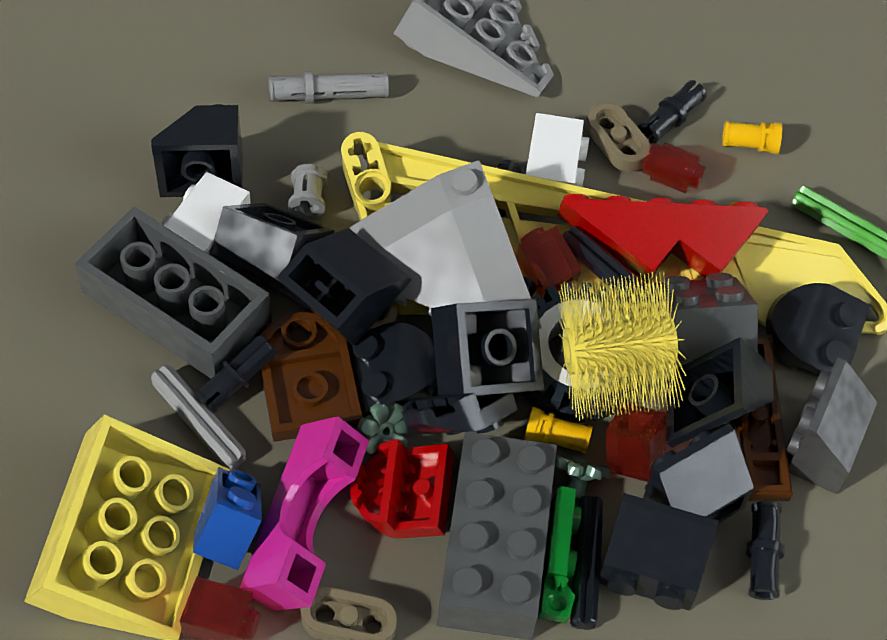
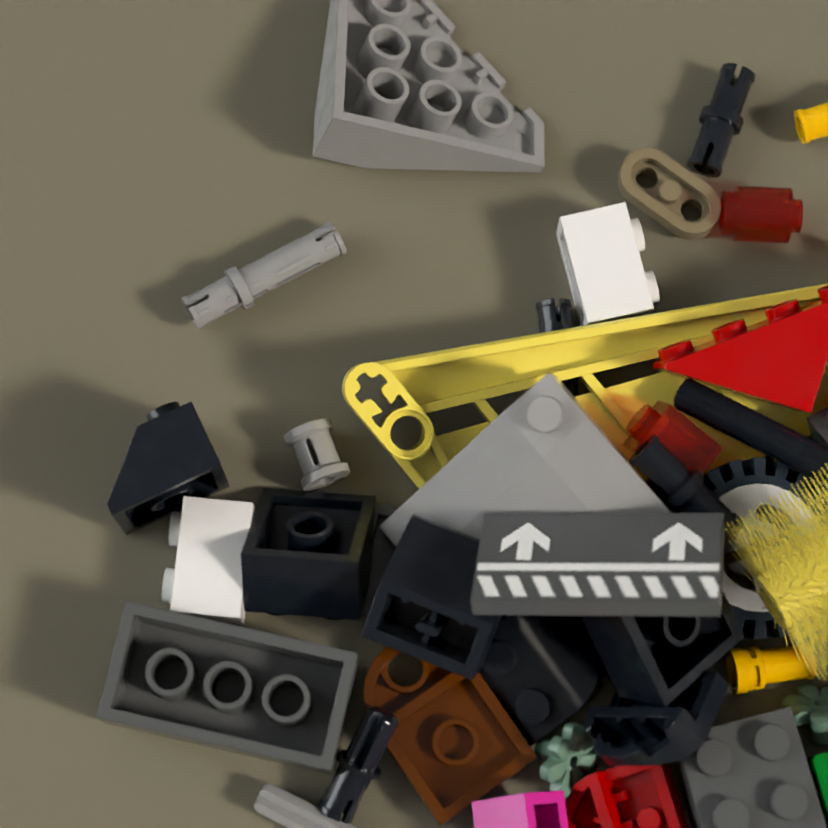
camera: 20 degrees left, 20 degrees up
(458, 282) = (600, 564): none -> dark grey tile
(540, 275) = (680, 486): none -> black pin

